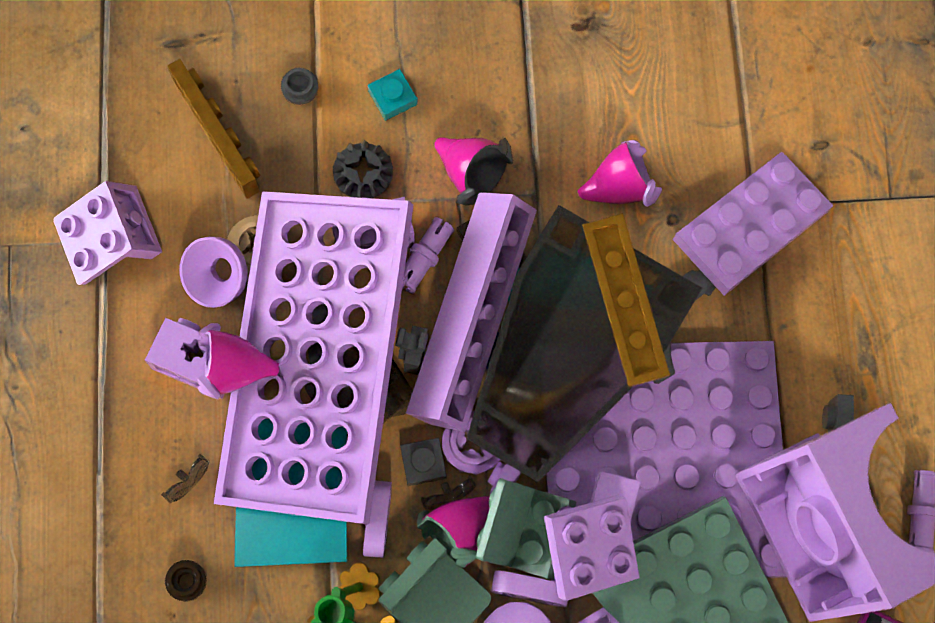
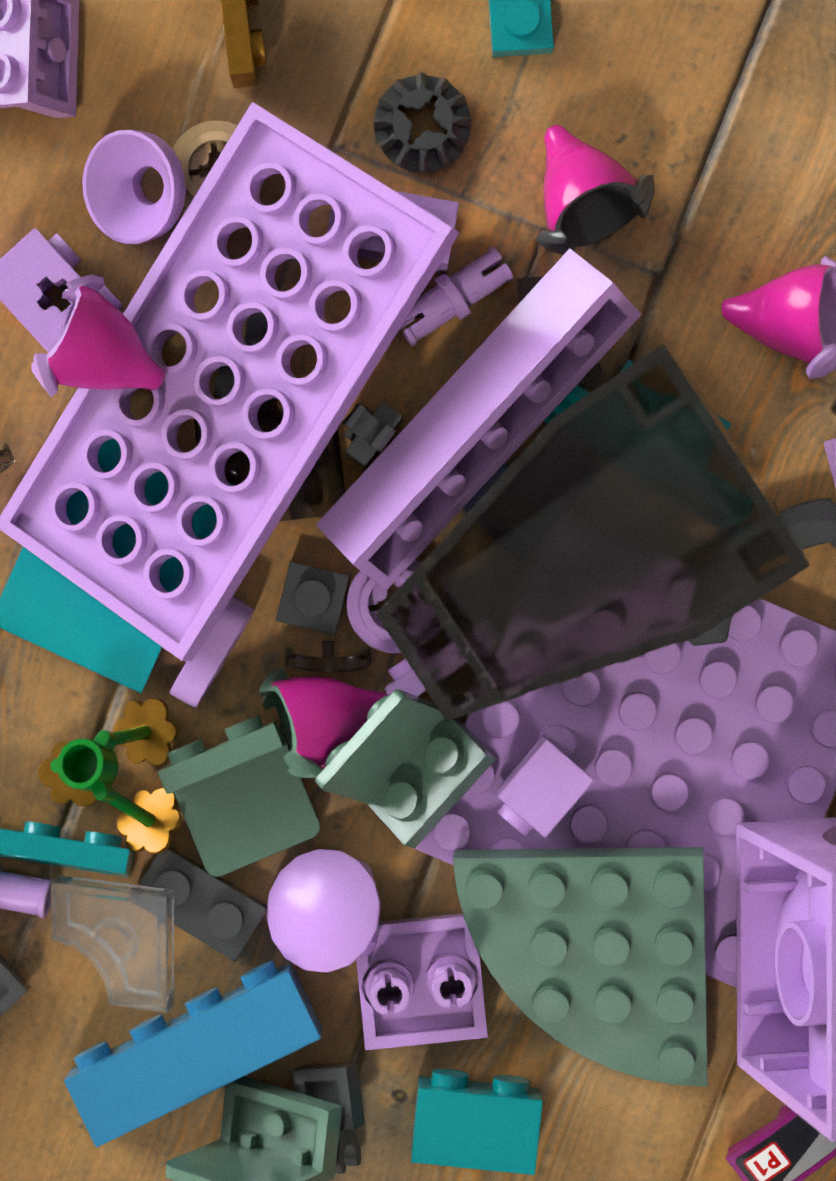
camera: 25 degrees right, 15 degrees up
(526, 588) = (377, 844): lavender beam -> none
(591, 547) = (479, 840): lavender plate -> none
(626, 300) = (689, 533): pearl gold plate -> none

